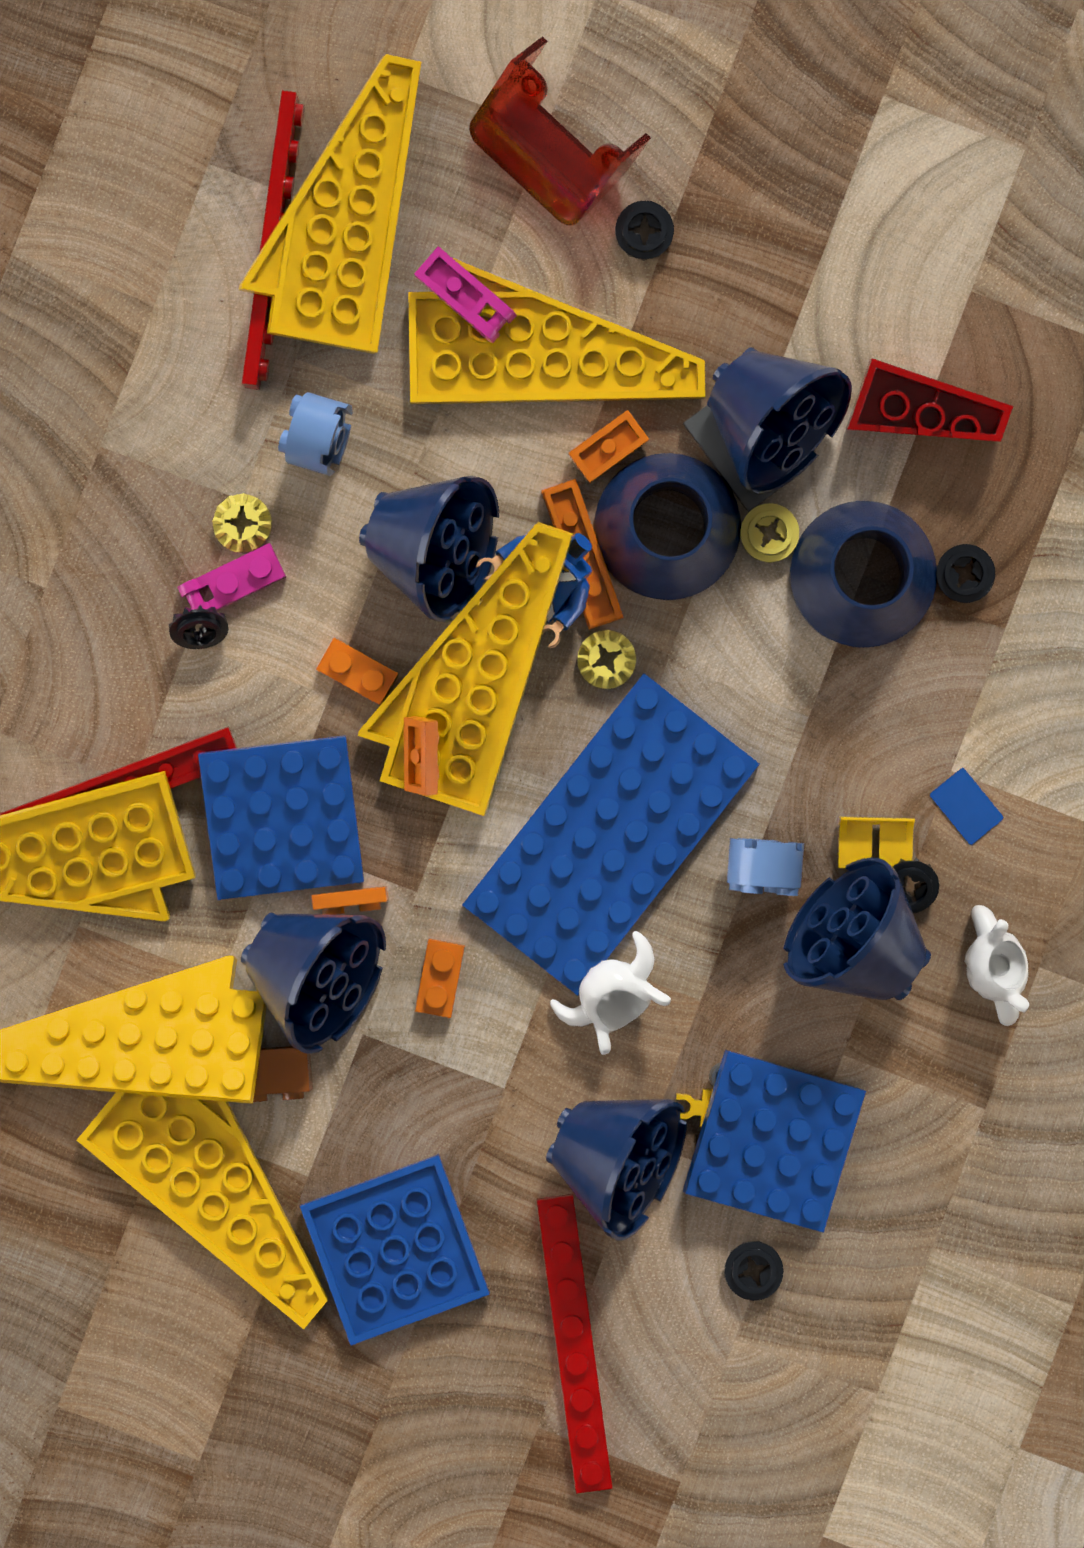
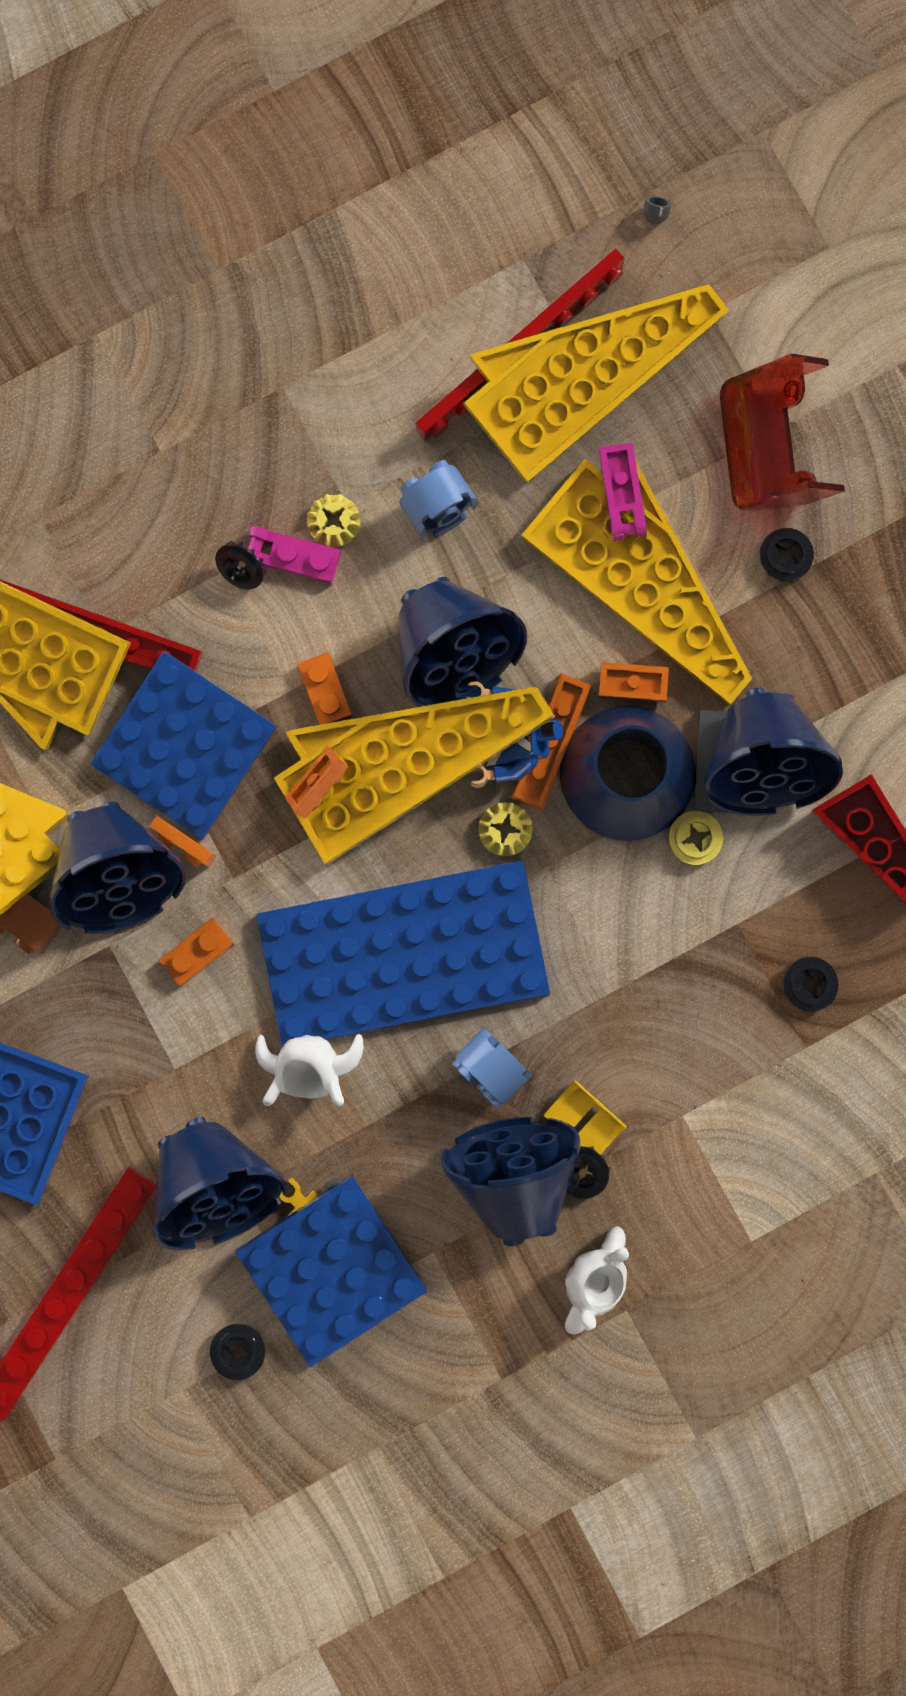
camera: 50 degrees right, 5 degrees down
(285, 25) = (656, 209): none -> dark grey hinge
(829, 608) = (698, 944): dark blue cone -> none
(966, 806) = (672, 1150): blue sticker -> none

